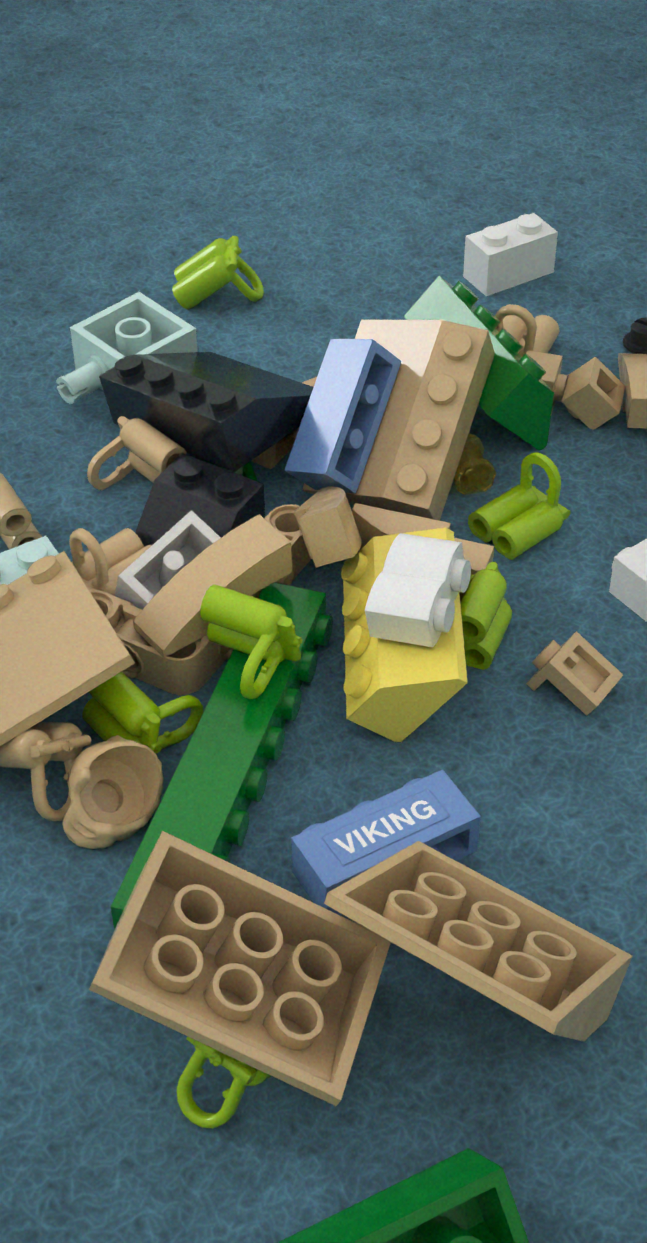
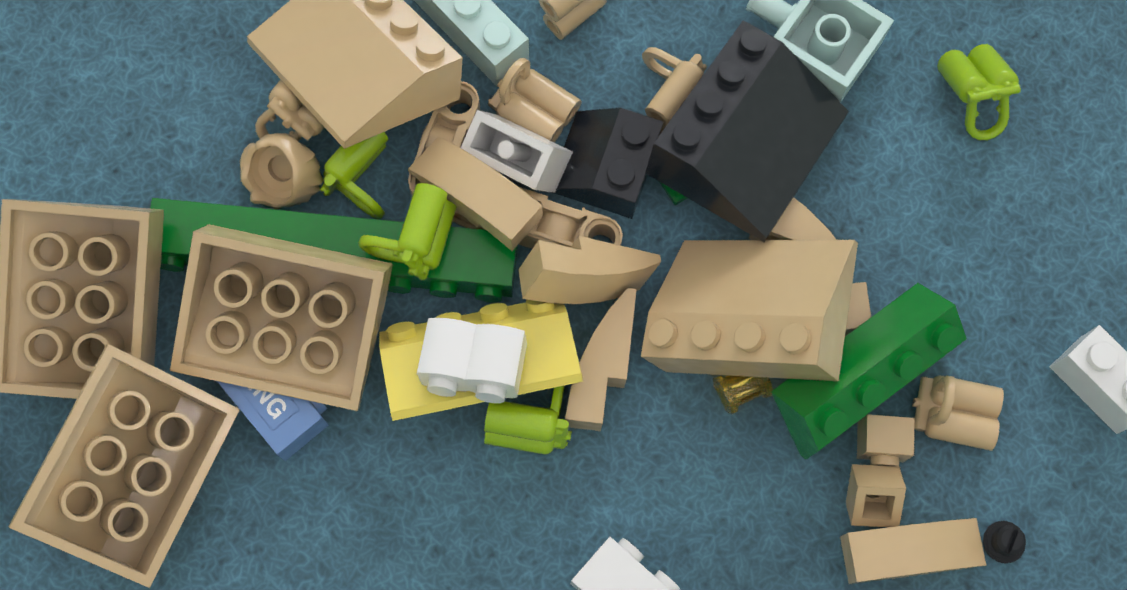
camera: 75 degrees right, 30 degrees up
(313, 775) = (279, 316): none -> tan slope
(343, 414) = (725, 252): medium blue brick -> none
(522, 513) = (680, 446): lime piece -> none
(576, 672) = (477, 517): tan bracket -> none

